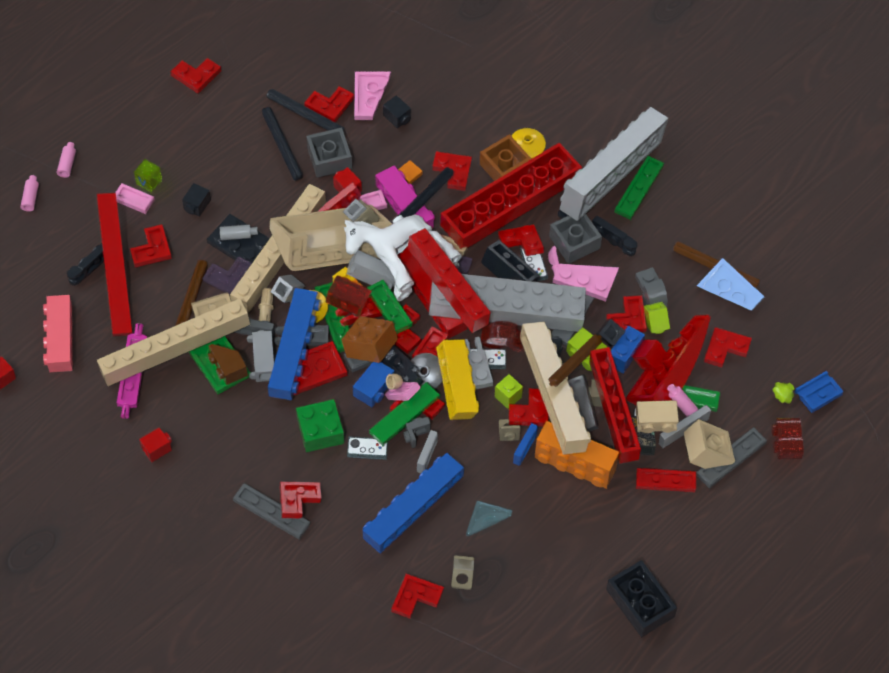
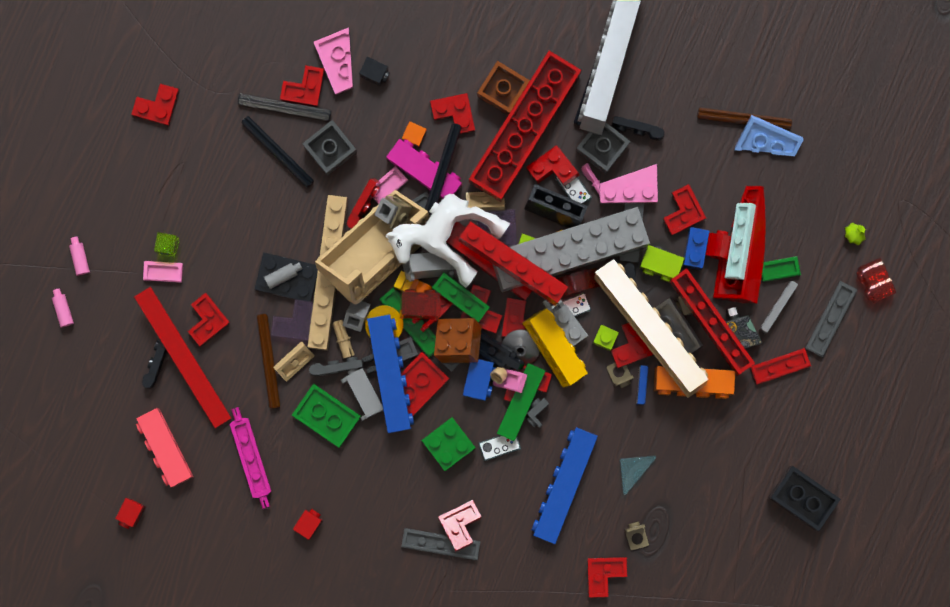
camera: 20 degrees left, 25 degrees up
(173, 342) = (279, 420): tan brick -> none
(196, 199) = (225, 252): black brick -> none
(228, 363) = (339, 419): reddish brown slope -> none
(344, 178) = (360, 173): red brick -> none
(427, 451) = (556, 425): light grey tile -> none
(535, 145) = (513, 61): yellow dish -> none
(575, 360) = (660, 294): reddish brown axle -> none
(610, 332) = (677, 242): black brick -> none
(639, 187) = (640, 60): green tile -> none
(652, 287) = (698, 176): dark grey brick -> none
(656, 416) = (754, 315): tan brick -> none
(657, 317) = (712, 204): lime brick -> none
(670, 353) = (740, 241): none -> light aqua tile
(683, 401) = (768, 284): bright pink cylinder -> none
(708, 445) = (808, 320): tan slope -> none
(723, 342) = (780, 200): red plate -> none
(819, 392) = (887, 219): blue plate -> none

